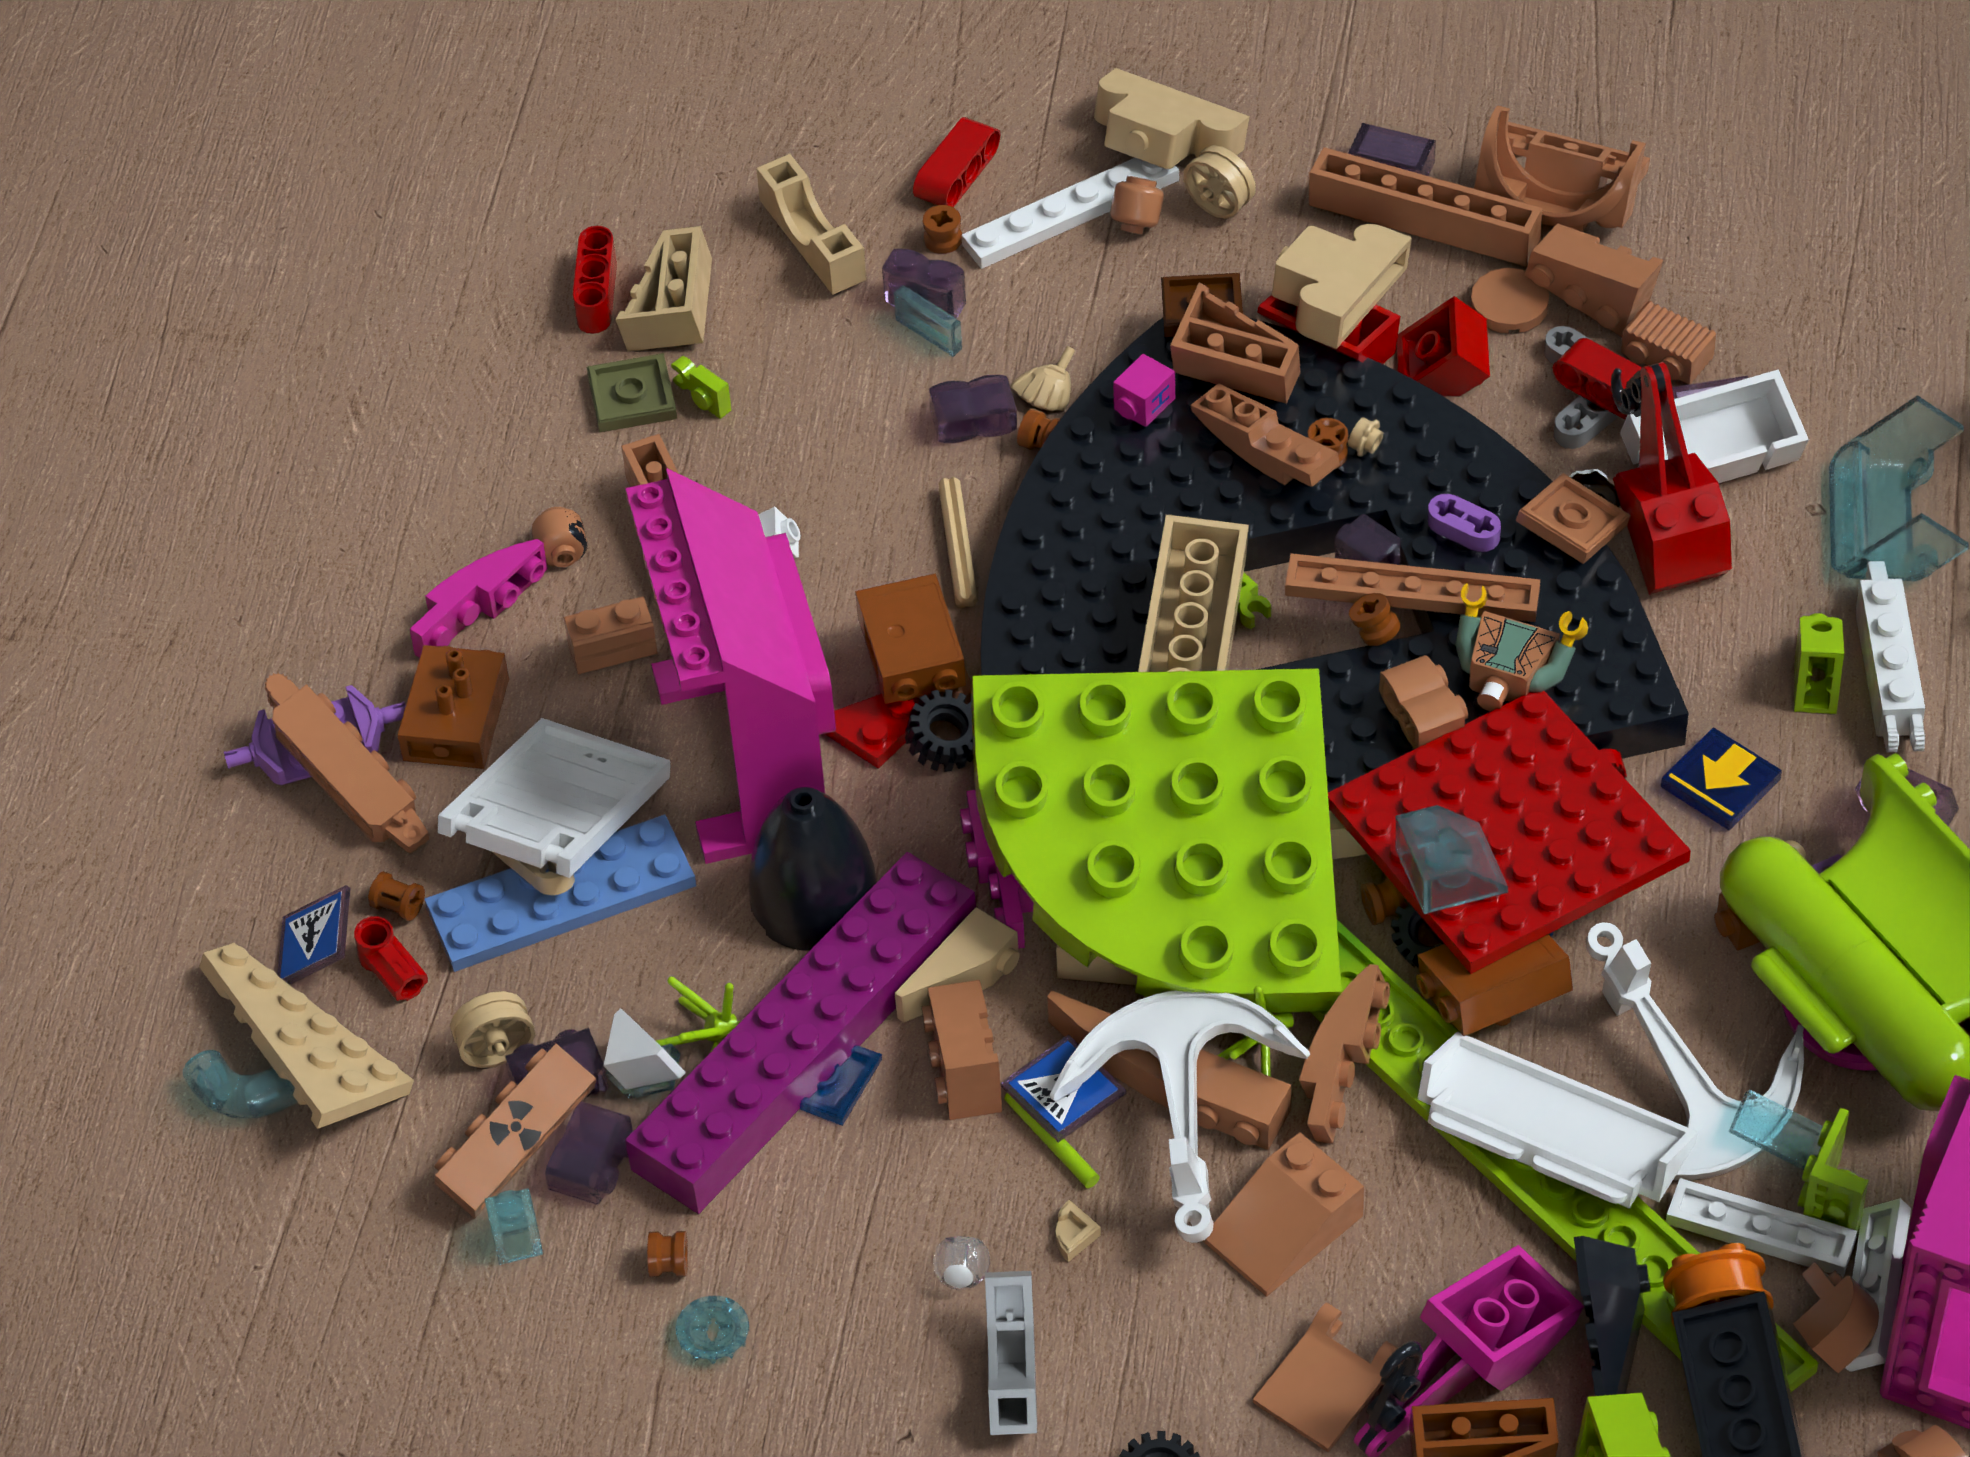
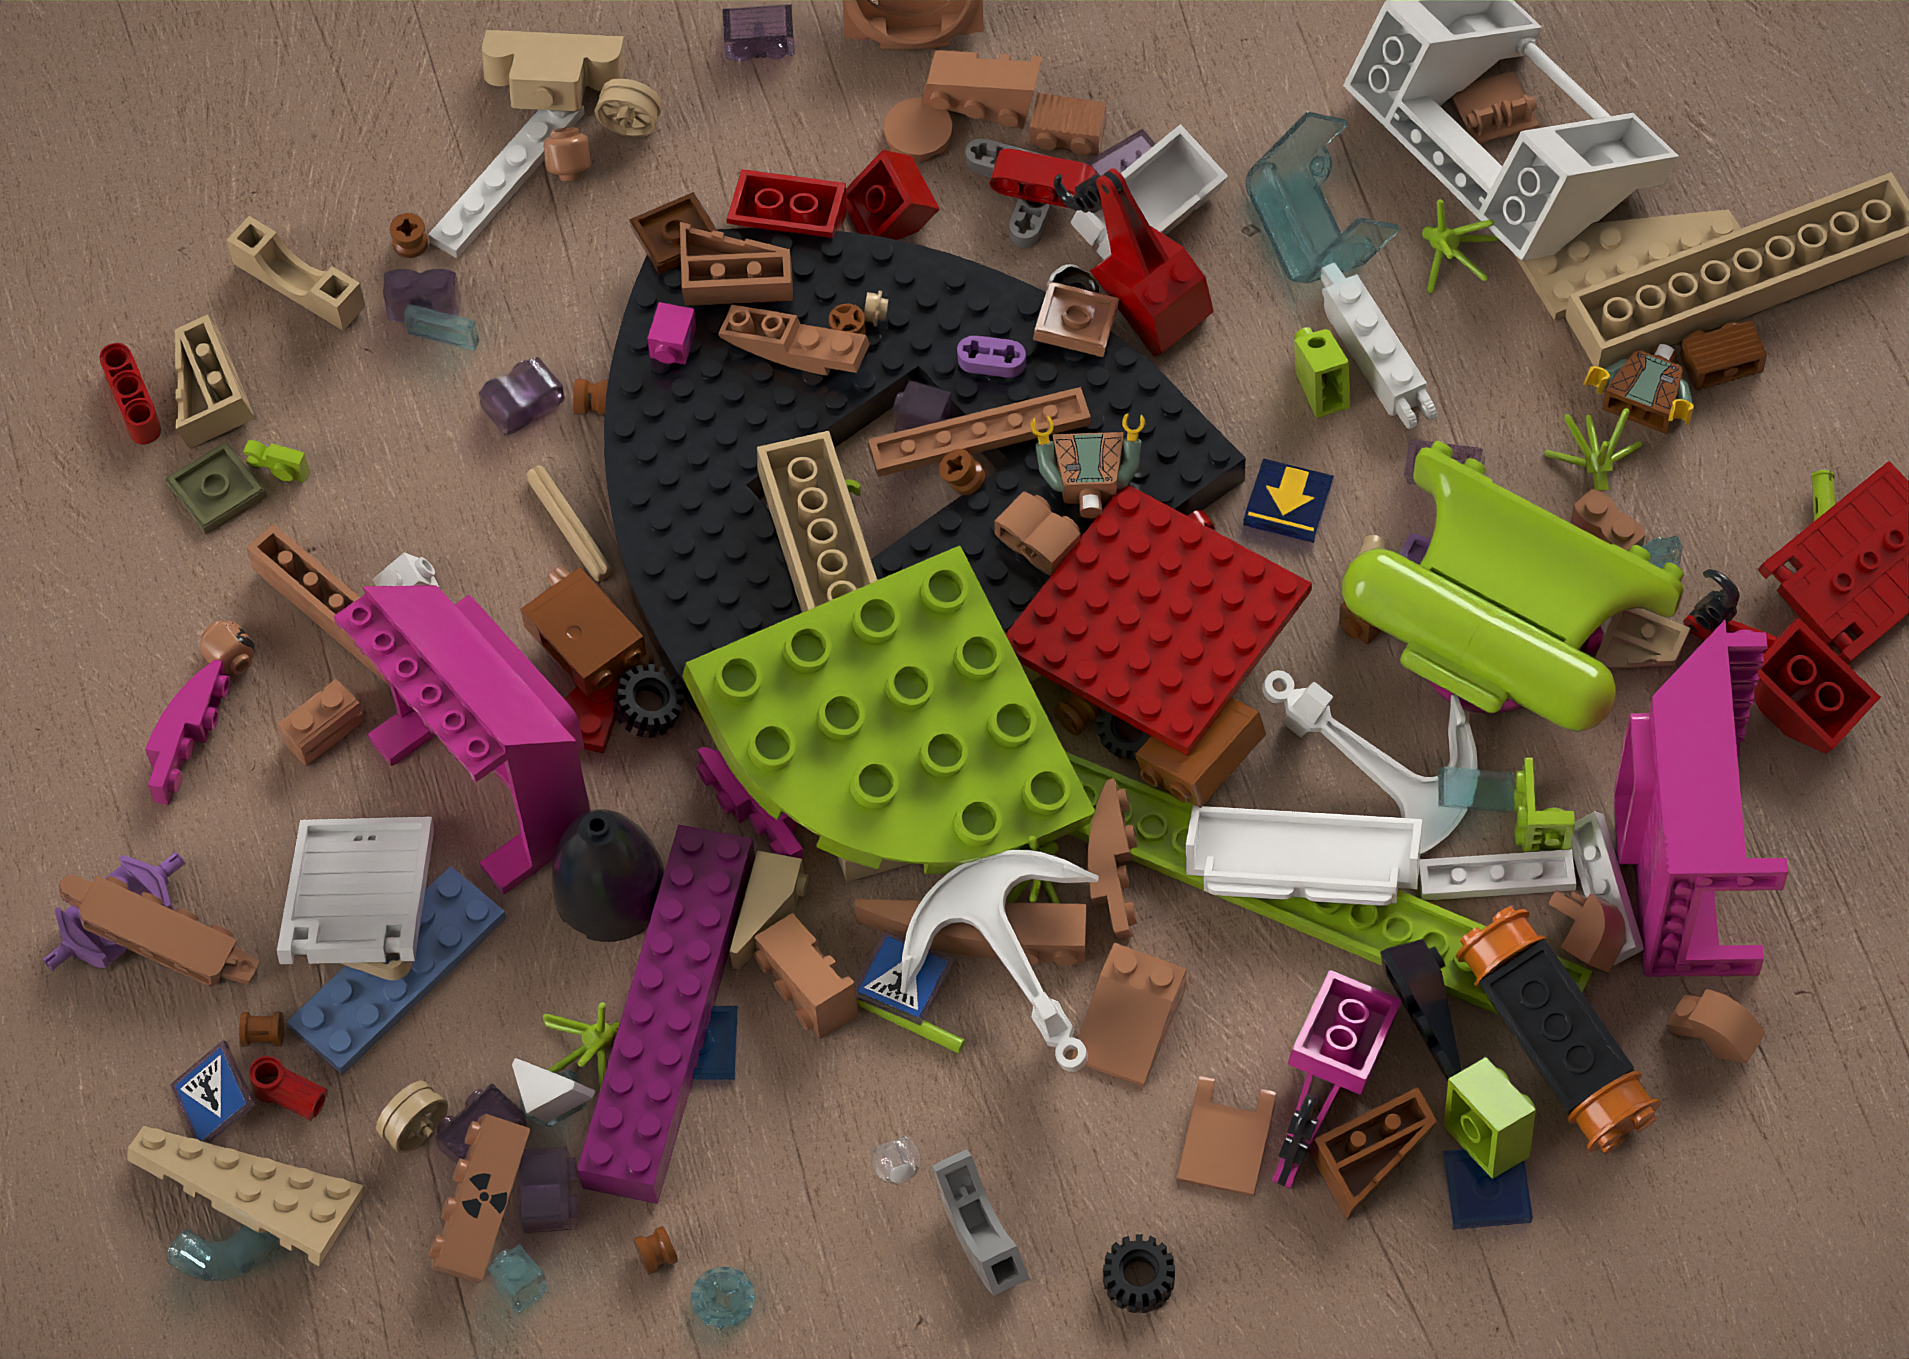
camera: 25 degrees left, 10 degrees up
(453, 706) = (219, 838): dark orange piece -> none
(956, 162) = (389, 167): red beam -> none
(1047, 385) = (571, 349): tan piece -> none
(1074, 1231) = (967, 1094): tan tile -> none
(1338, 278) = (781, 169): tan brick -> none
(1425, 206) = (810, 69): nougat brick -> none
(1446, 858) = (1130, 668): clear light blue slope -> none

